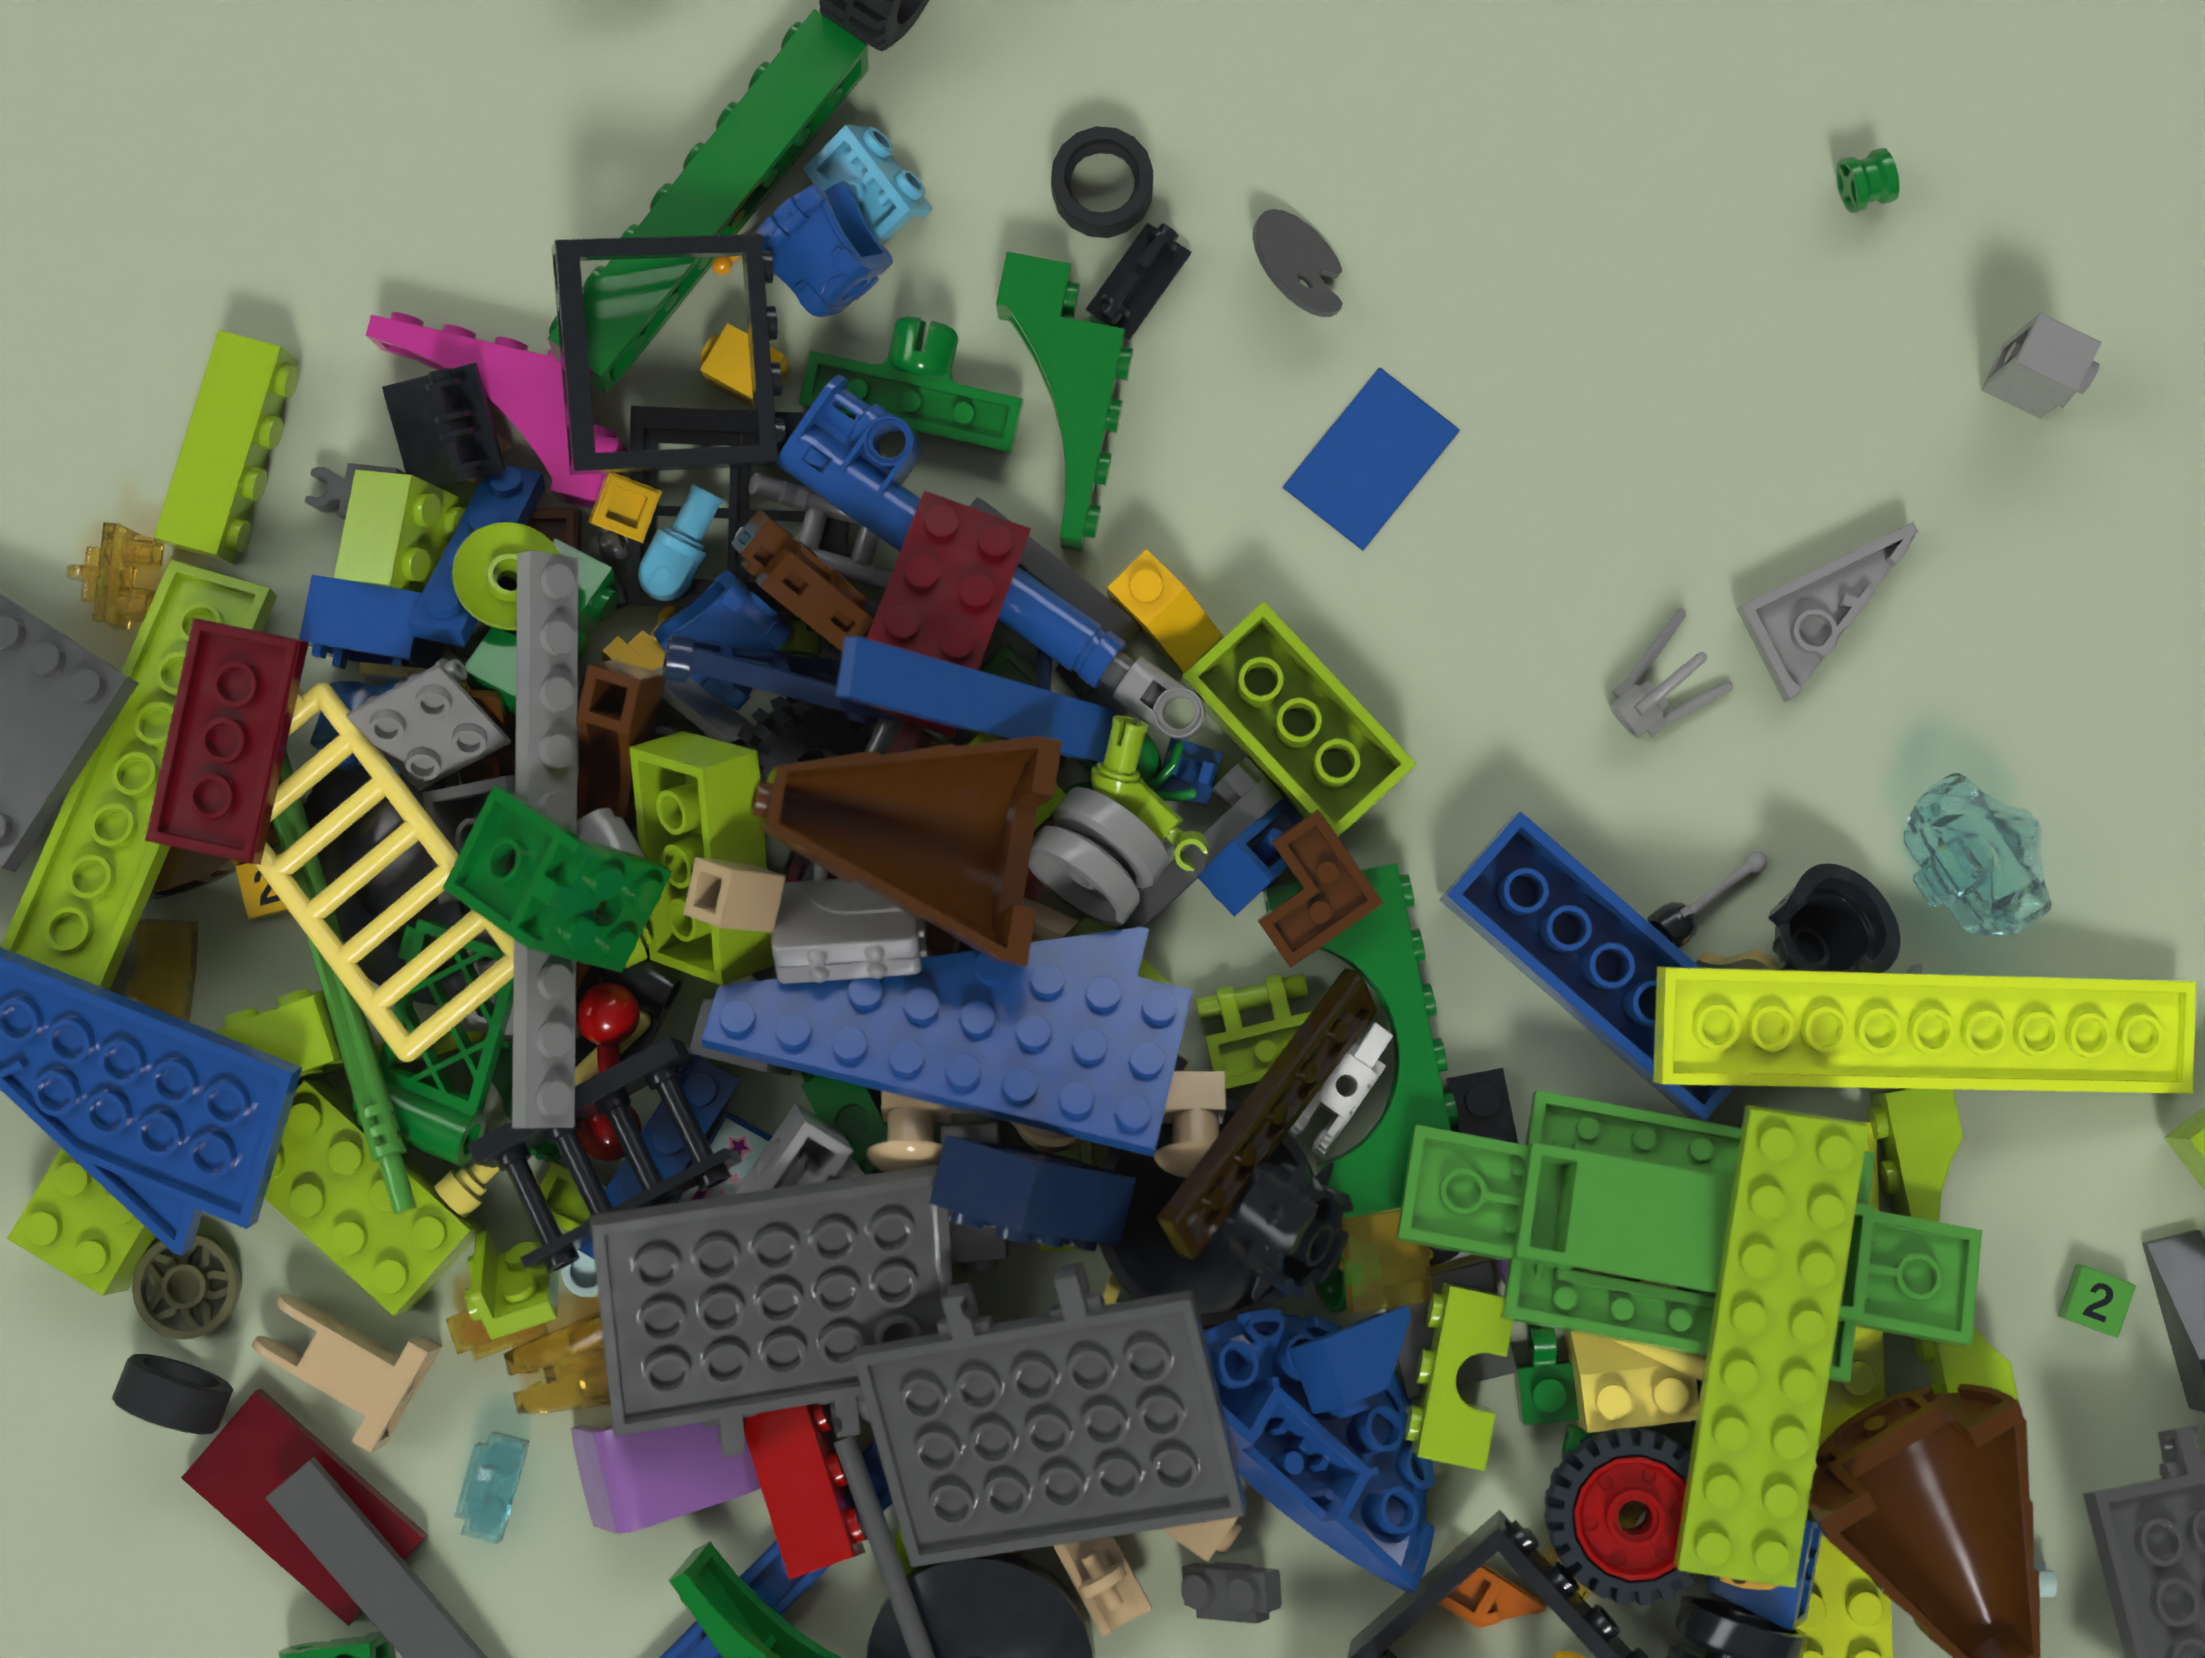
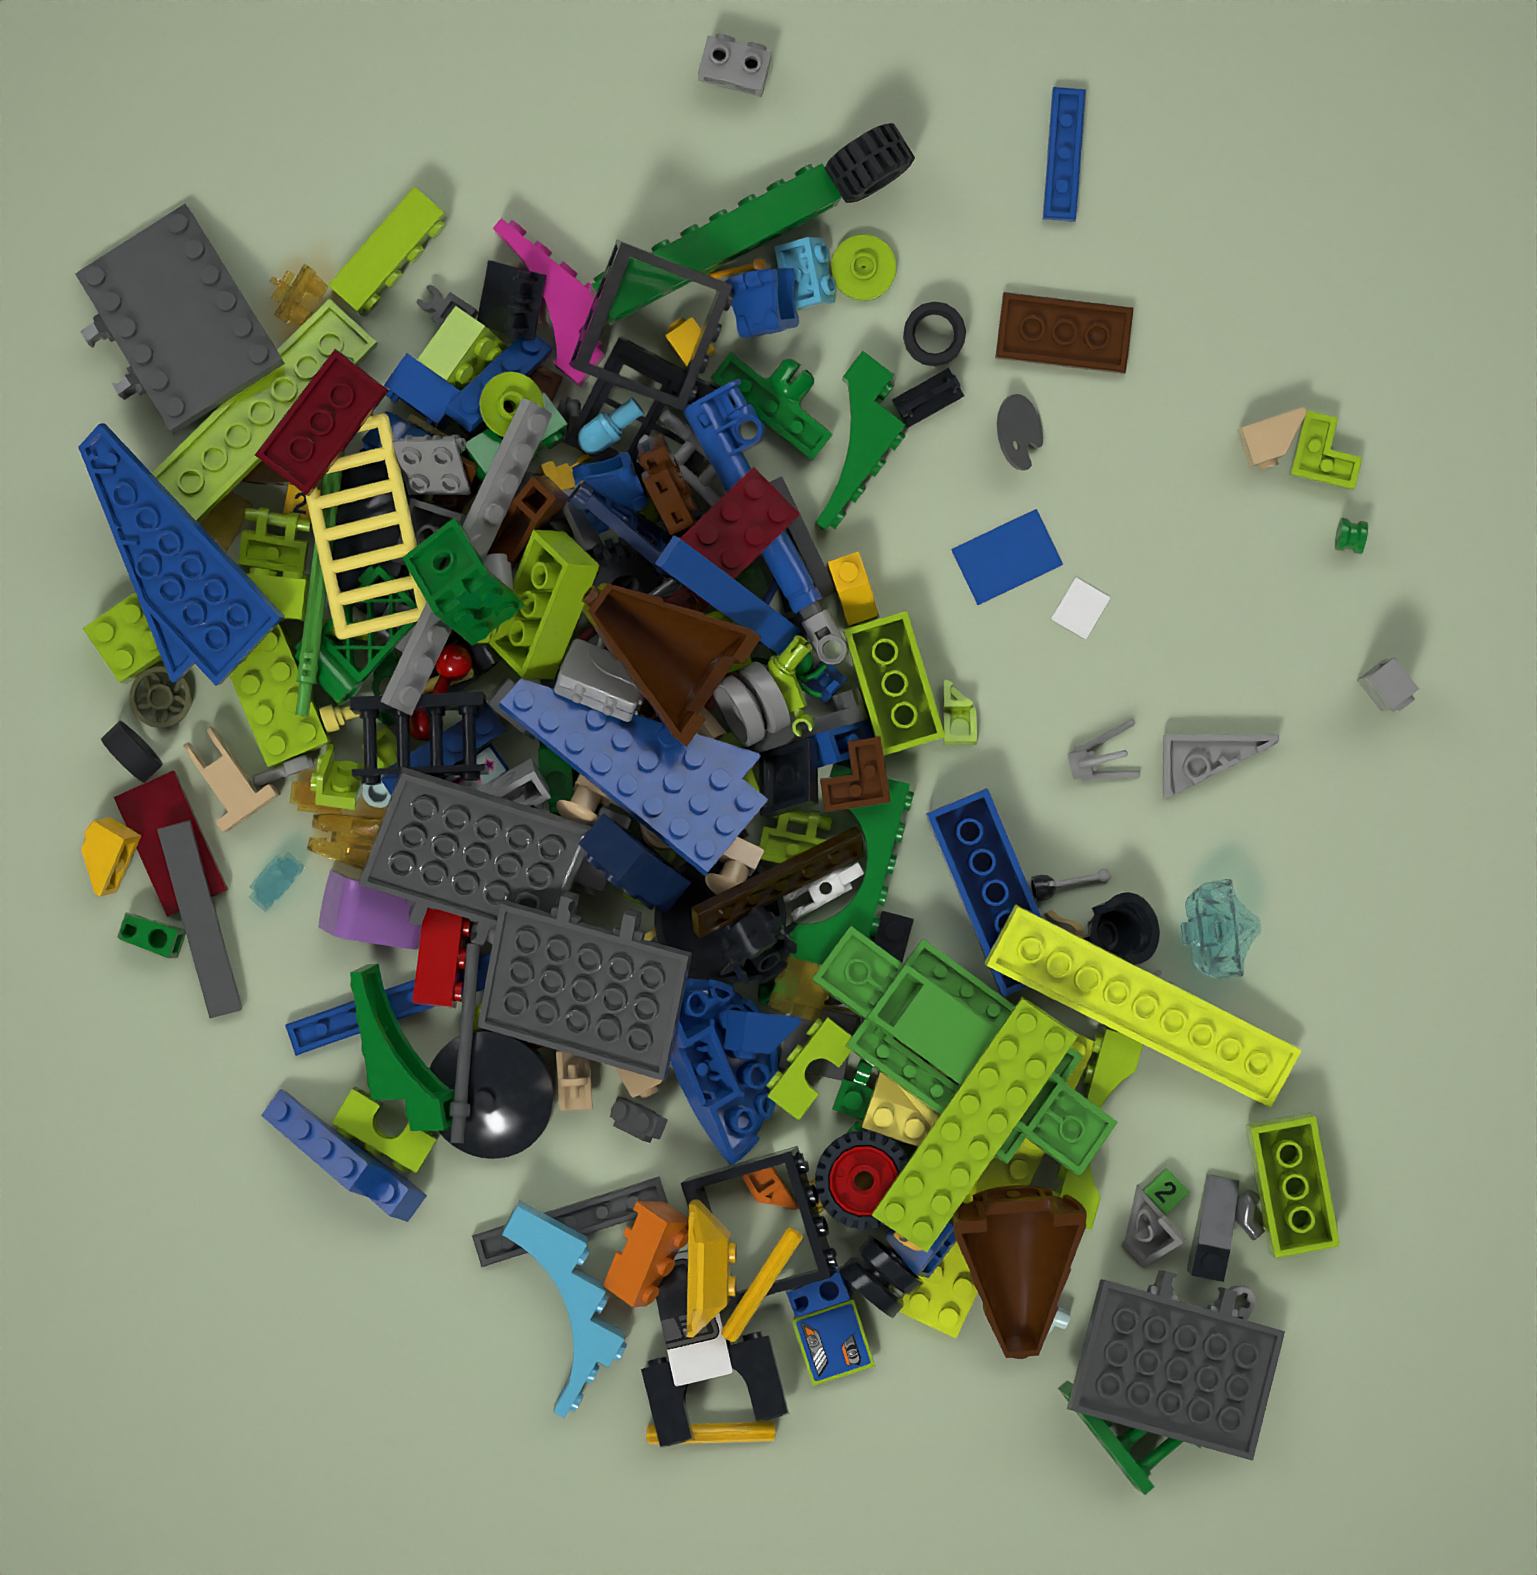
camera: 15 degrees right, 5 degrees up
(209, 1573) = (107, 853): none -> yellow slope
(254, 977) = (272, 550): none -> lime plate
(431, 1300) = (286, 769): none -> light grey bar
(624, 506) = (589, 392): yellow tile -> none
(734, 895) = (552, 636): tan brick -> none
(956, 163) = (868, 282): none -> lime piece
(1209, 942) = (789, 777): none -> black plate
(1293, 92) = (1064, 333): none -> reddish brown tile
(1418, 729) = (958, 717): none -> lime slope
(1518, 481) = (1080, 608): none -> white sticker
(1675, 96) = (1270, 438): none -> tan slope
(1756, 95) = (1314, 456): none -> lime plate
(2107, 1377) = (1149, 1231): none -> light grey slope

